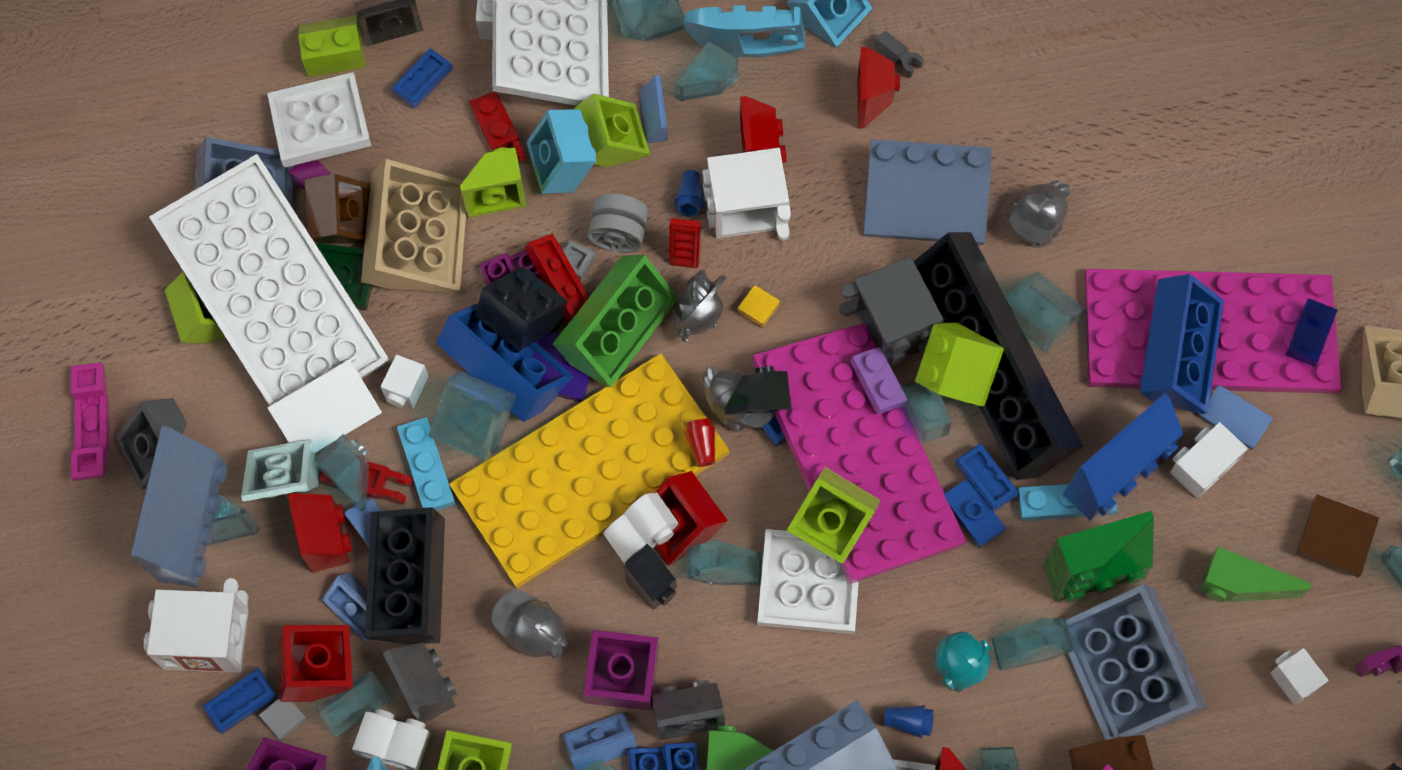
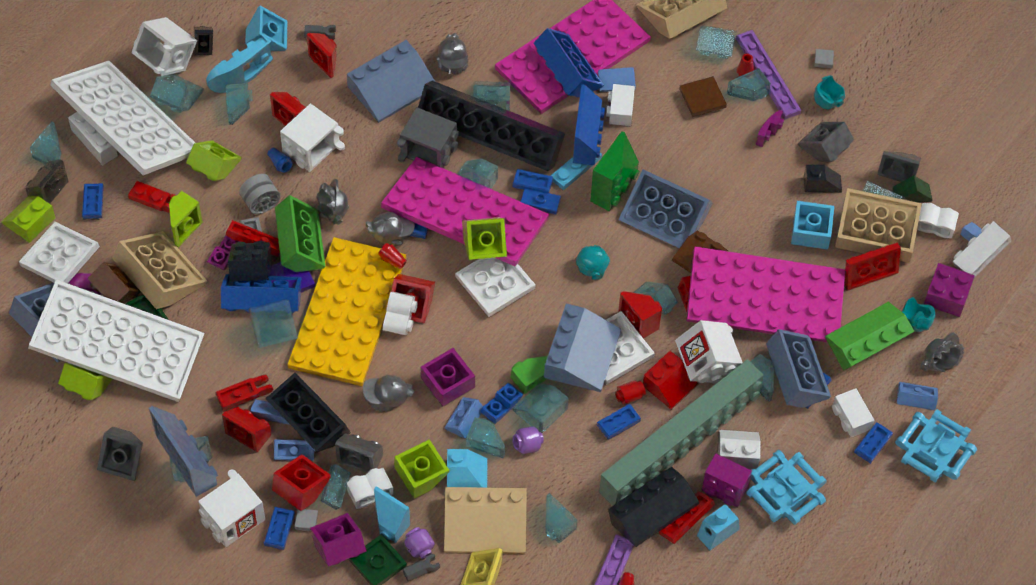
camera: 45 degrees left, 10 degrees down
(91, 422) = (77, 470): dark pink slope -> none
(280, 470) = (204, 413): light aqua slope -> none
(325, 407) = (194, 376): white tile -> none
(347, 469) = (236, 390): clear light blue slope -> none
(404, 382) = (221, 337): white brick -> none
(426, 465) = (265, 364): medium azure plate -> none
(561, 151) = (202, 180): medium azure brick -> none
(650, 578) = (424, 330): black slope -> none
(653, 111) = (225, 135): medium blue slope -> none
(684, 243) = (301, 182): red slope -> none
(688, 710) = (494, 370): flat silver slope -> none
(724, 564) = (450, 302): clear light blue slope -> none
(758, 306) = (359, 185): yellow tile -> none
(760, 393) = (403, 212): black slope -> none
(878, 380) = (448, 174): medium lavender plate -> none
(910, 719) = (594, 301): blue cone -> none
(959, 363) = (479, 138): lime slope -> none
(1032, 643) = (616, 232): clear light blue slope -> none
(1241, 579) = (681, 141): bright green slope -> none
(1298, 675) = (737, 163): white brick -> none
(1311, 332) = (617, 20): clear blue plate -> none

